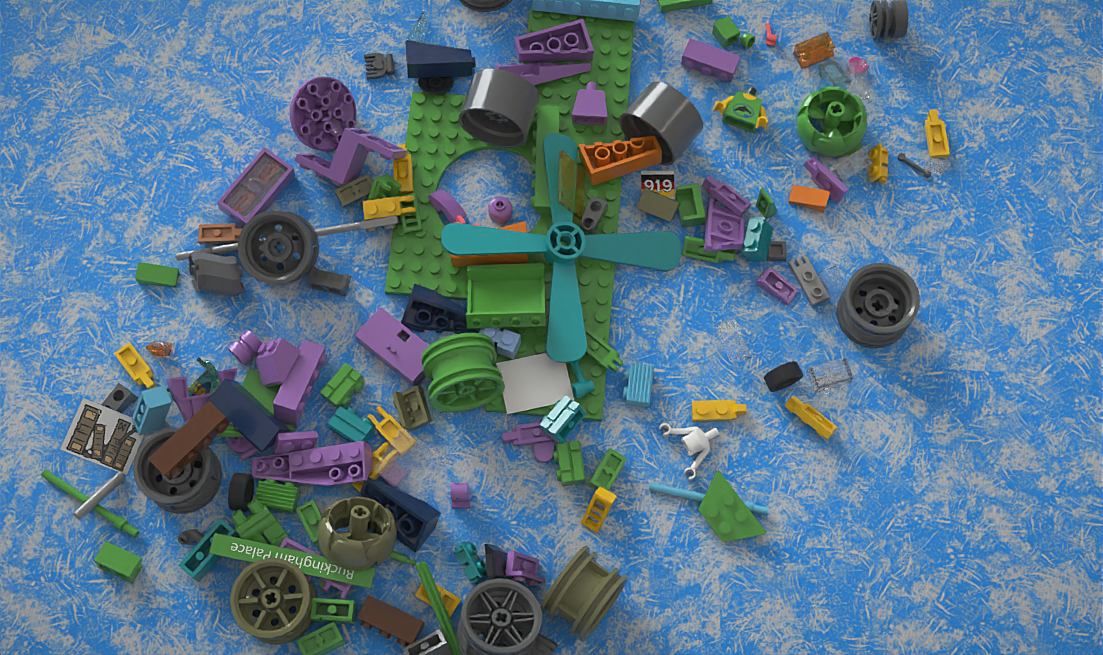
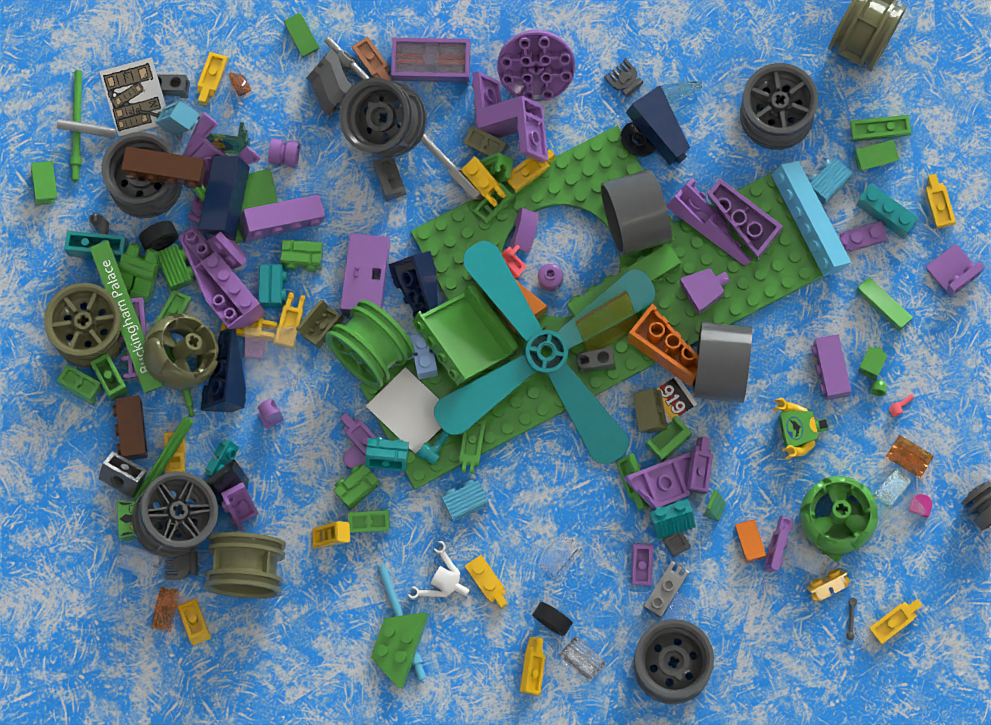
camera: 60 degrees right, 5 degrees up
(276, 361) = (284, 186): medium lavender slope -> none

